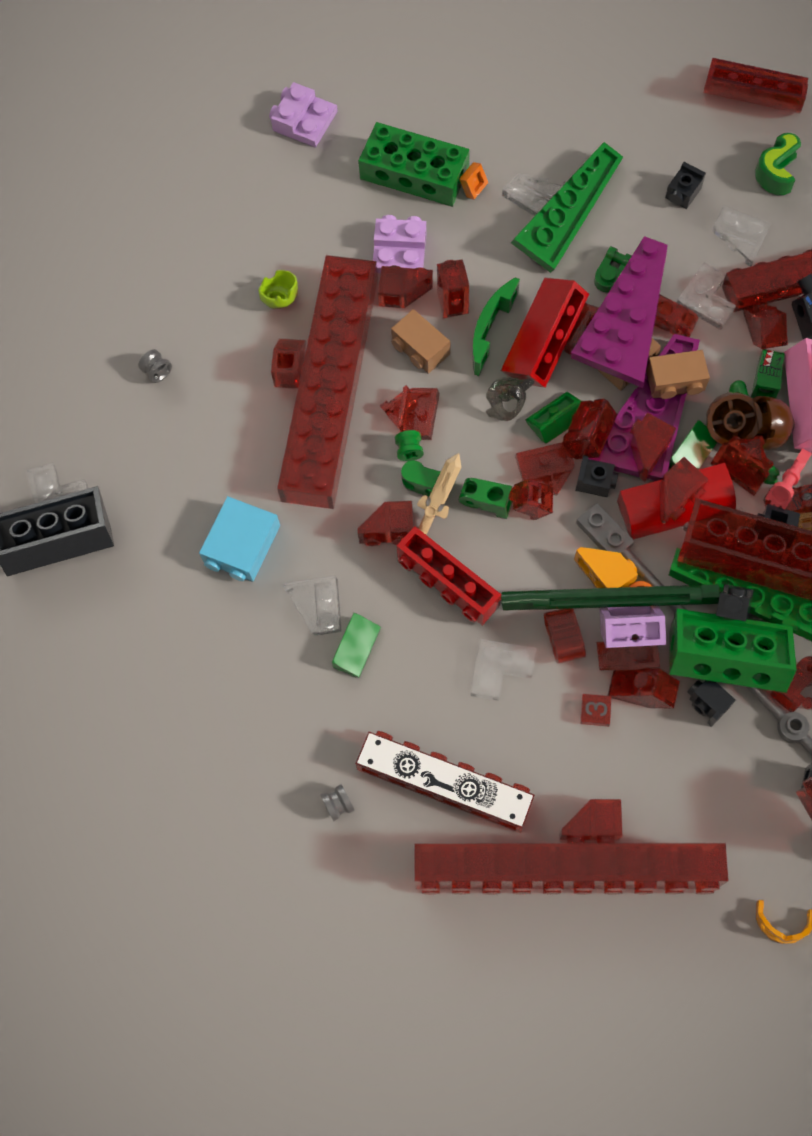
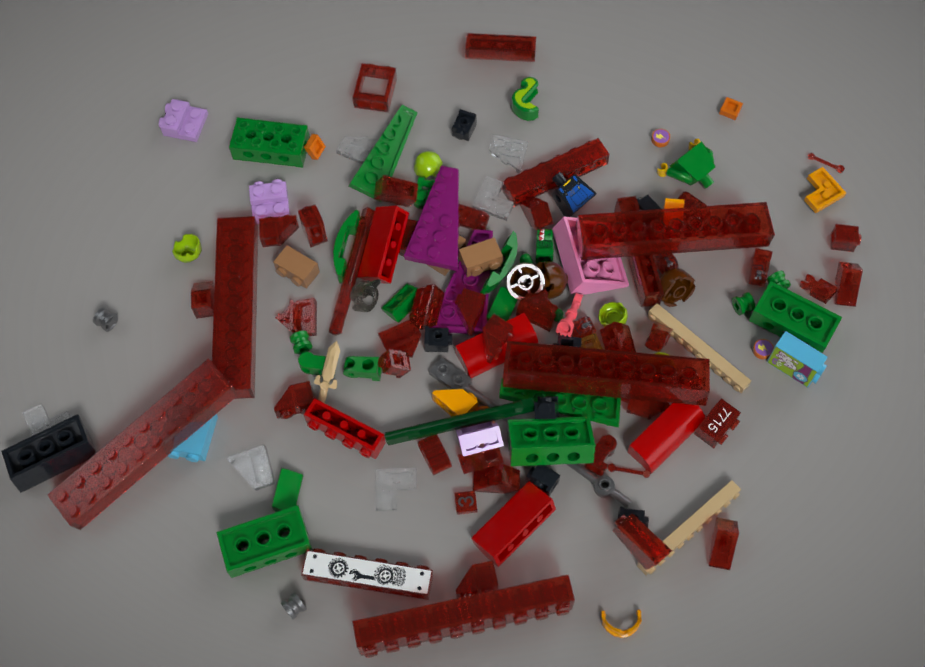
camera: 15 degrees left, 5 degrees down
(177, 544) = (142, 445): none -> clear red brick
(305, 691) = (257, 530): none -> green brick
(494, 361) = (351, 271): none -> clear red piece
(574, 134) = (374, 101): none -> clear red window
(575, 260) = (396, 191): none -> clear red brick
(624, 231) = (427, 164): none -> lime hair
(658, 753) = (513, 523): none -> red brick
(719, 373) = (509, 251): none -> green slope

